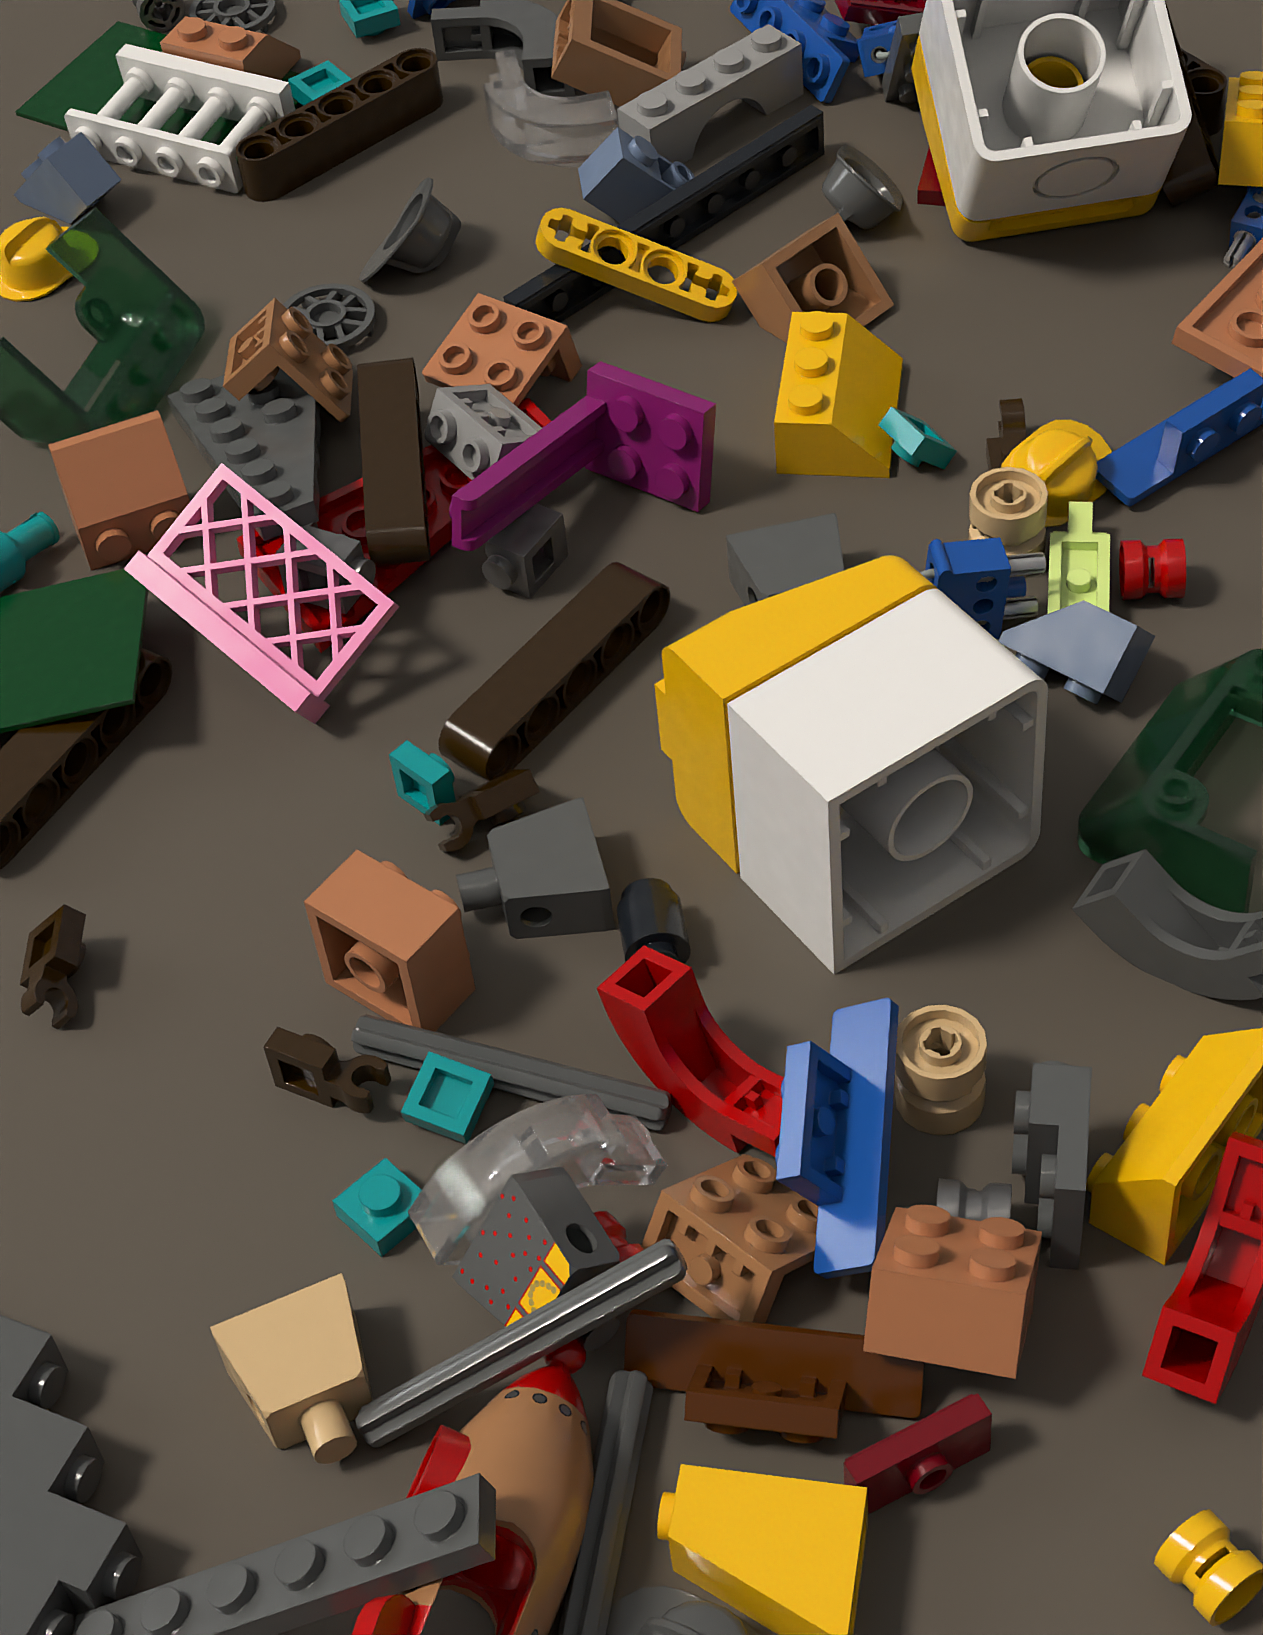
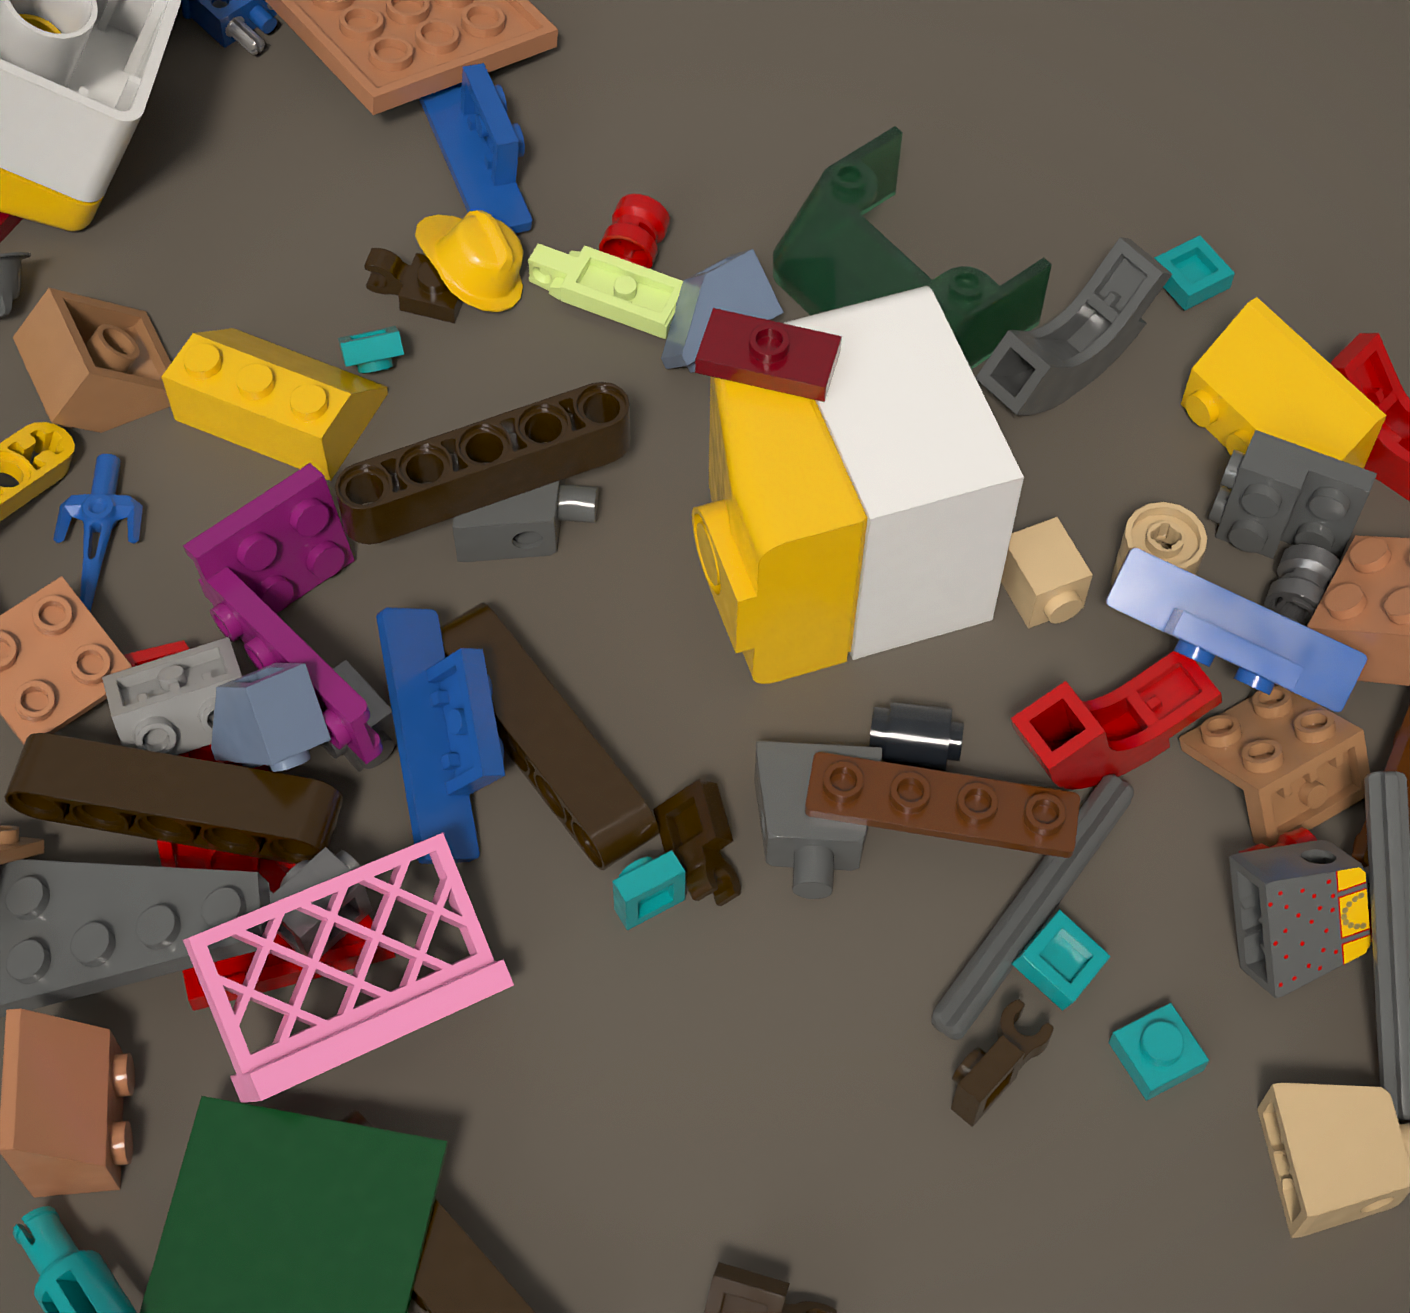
camera: 80 degrees left, 10 degrees up
(390, 942) = (887, 952): nougat brick -> none
(451, 457) = (268, 718): none -> sand blue slope
(514, 589) = (441, 727): none -> blue bracket
(555, 1133) = (1201, 905): clear arch -> none
(561, 948) = (943, 804): none -> reddish brown bracket
(670, 349) = (99, 514): none -> blue piece
(771, 506) = (581, 433): none -> dark brown beam
(878, 578) = (768, 354): none -> dark red plate
(891, 968) = (1045, 574): none -> tan brick
(979, 579) = (618, 348): blue piece -> none
(1009, 506) = (534, 311): tan wheel -> none

